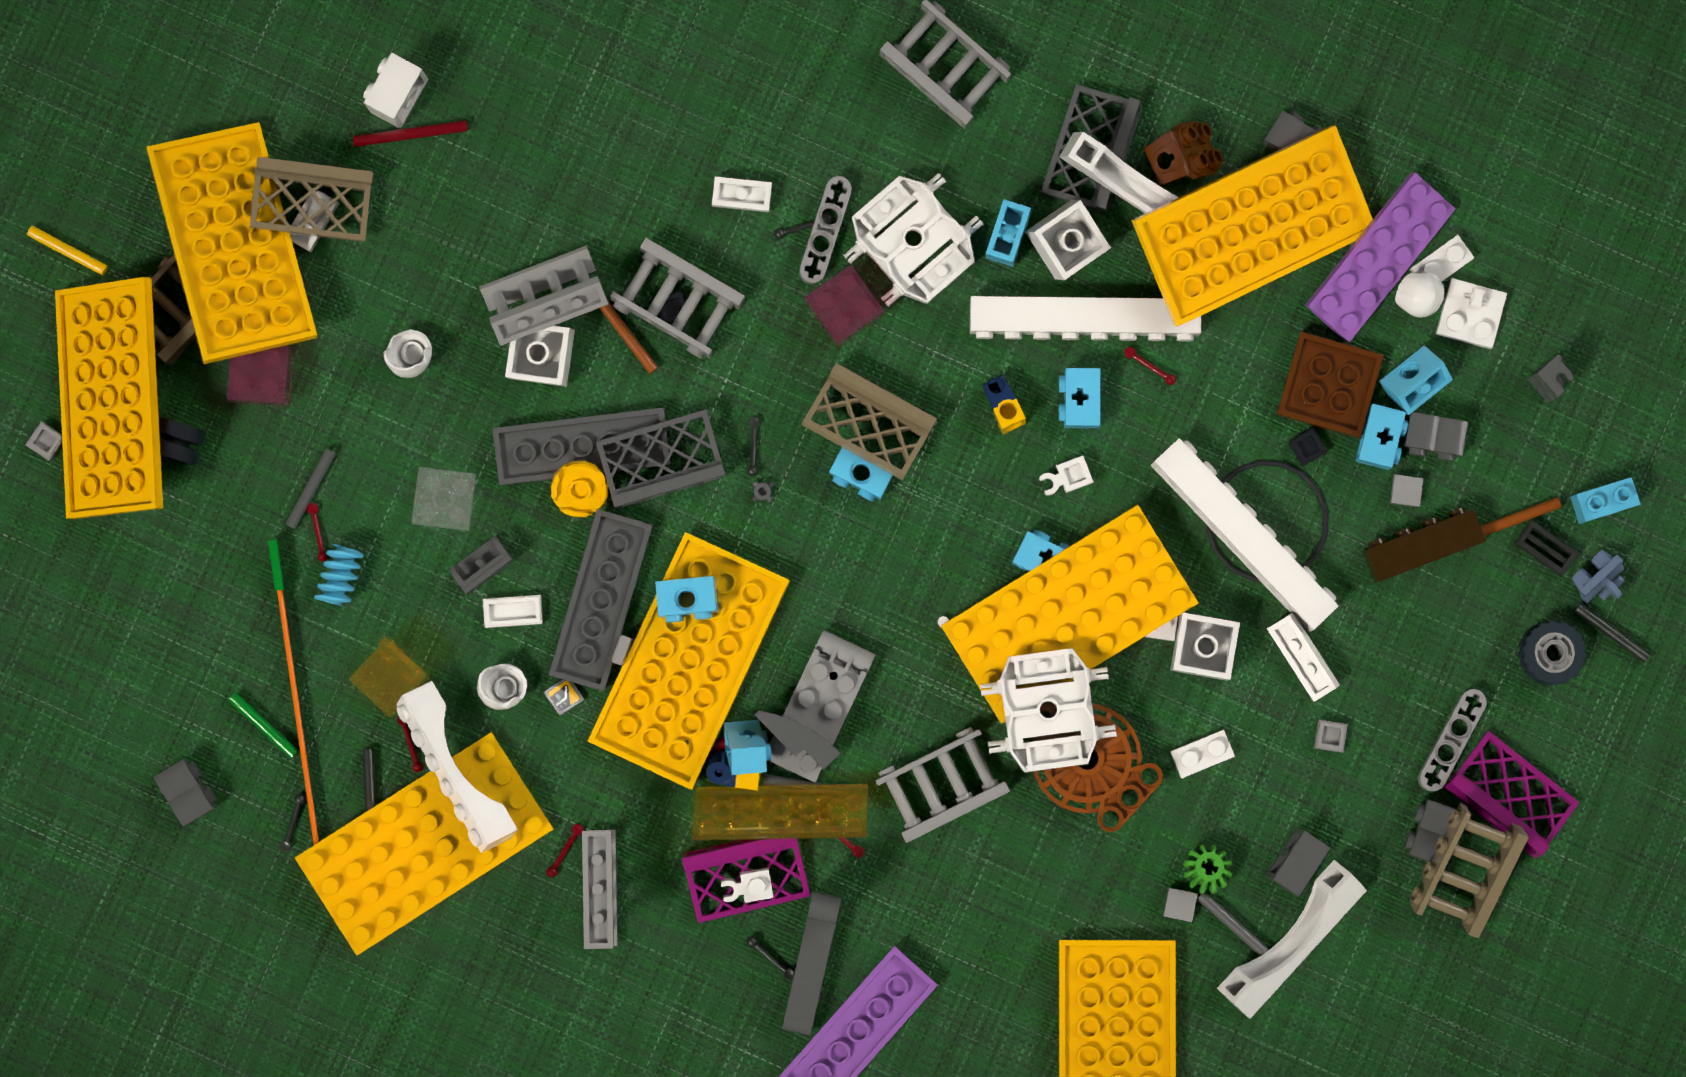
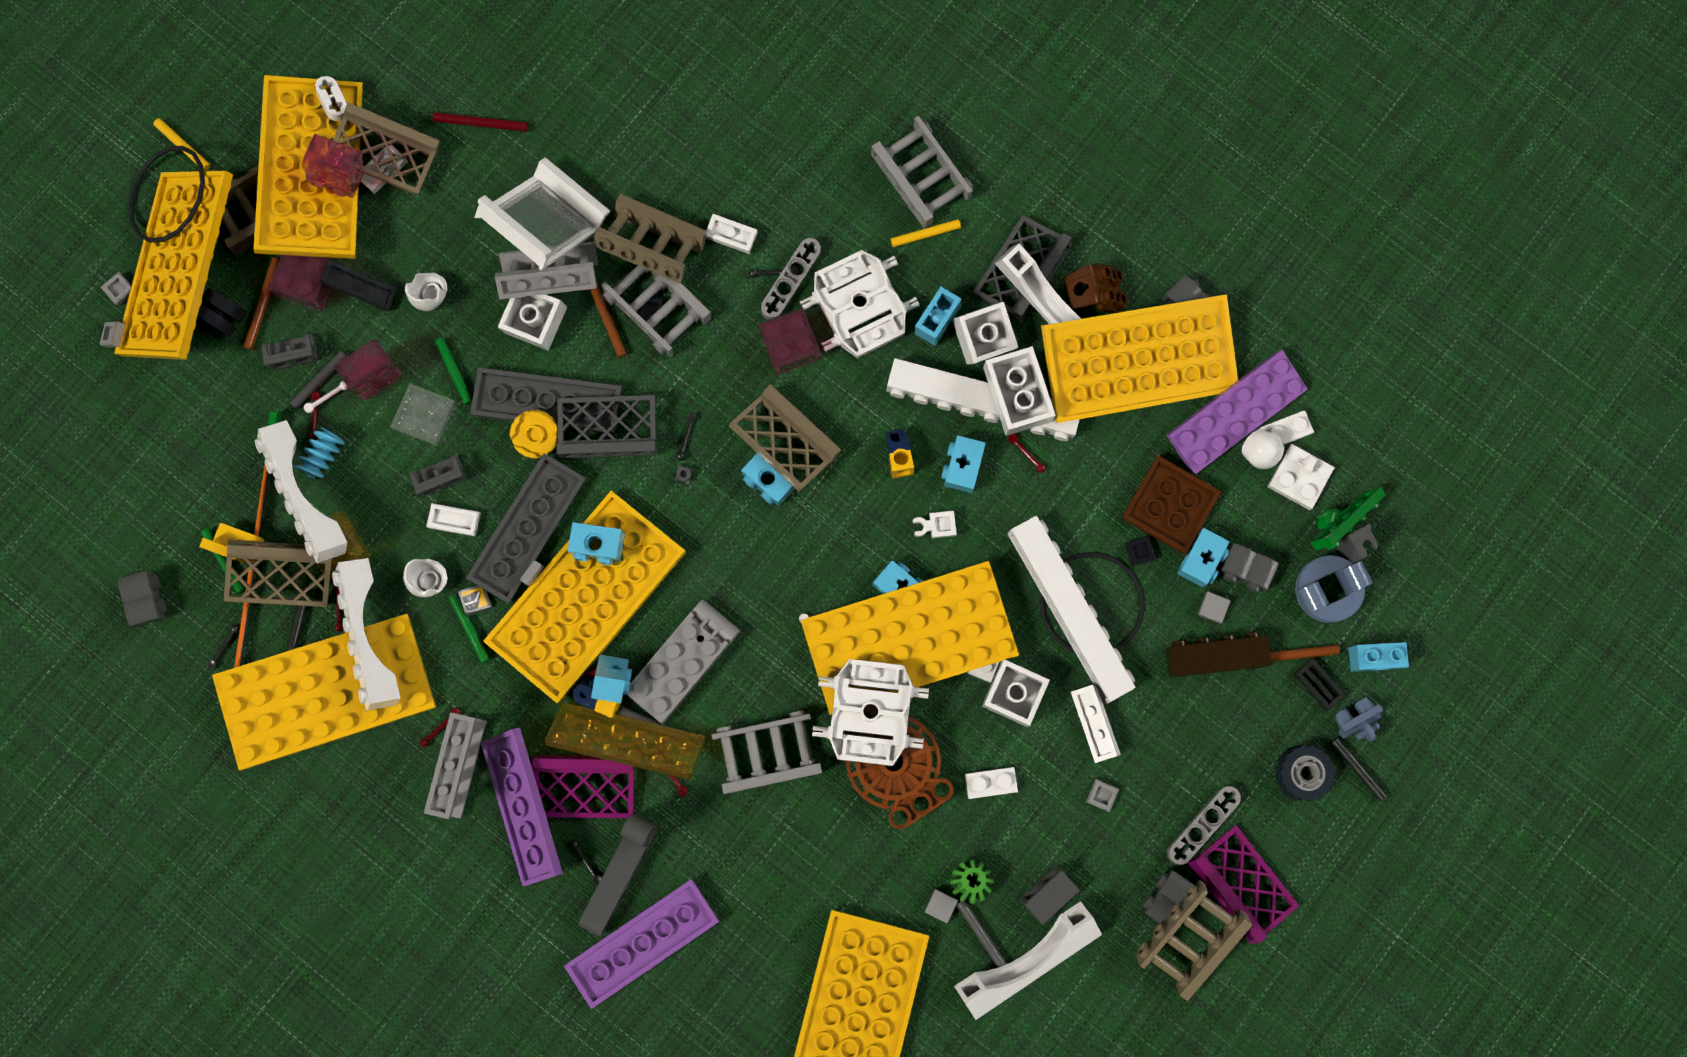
camera: 10 degrees right, 5 degrees down
(57, 497) = (112, 334): none -> light grey tile
(118, 326) = (195, 207): none -> black piece
(218, 417) = (260, 307): none -> dark orange bar
(237, 149) = (327, 100): none -> white beam
(266, 239) = (333, 166): none -> clear pink brick
(268, 465) = (290, 353): none -> dark grey hinge
(274, 703) = (220, 541): none -> yellow panel
(310, 524) = (309, 408): none -> white hinge
(327, 368) = (357, 285): none -> black plate
(332, 700) = (274, 552): none -> dark tan fence
(370, 465) = (368, 370): none -> clear pink brick
(373, 666) = (321, 533): none -> white arch
(395, 90) = (475, 82): white brick -> none
(464, 438) = (454, 371): none -> green bar
(522, 230) = (544, 215): none -> piece
(569, 734) = (469, 629): none -> green bar
(656, 204) = (656, 222): none -> dark tan fence
(683, 915) = (521, 807): none -> medium lavender plate
(754, 886) = (587, 796): white plate -> none
(799, 737) = (656, 682): dark grey slope -> none
(968, 134) = (925, 233): none -> yellow bar
(1124, 301) = (1019, 391): none -> white brick
(1416, 380) = (1243, 518): medium azure brick -> none
(1526, 358) = (1341, 523): none -> green plate
(1554, 417) = (1351, 577): none -> sand blue piece

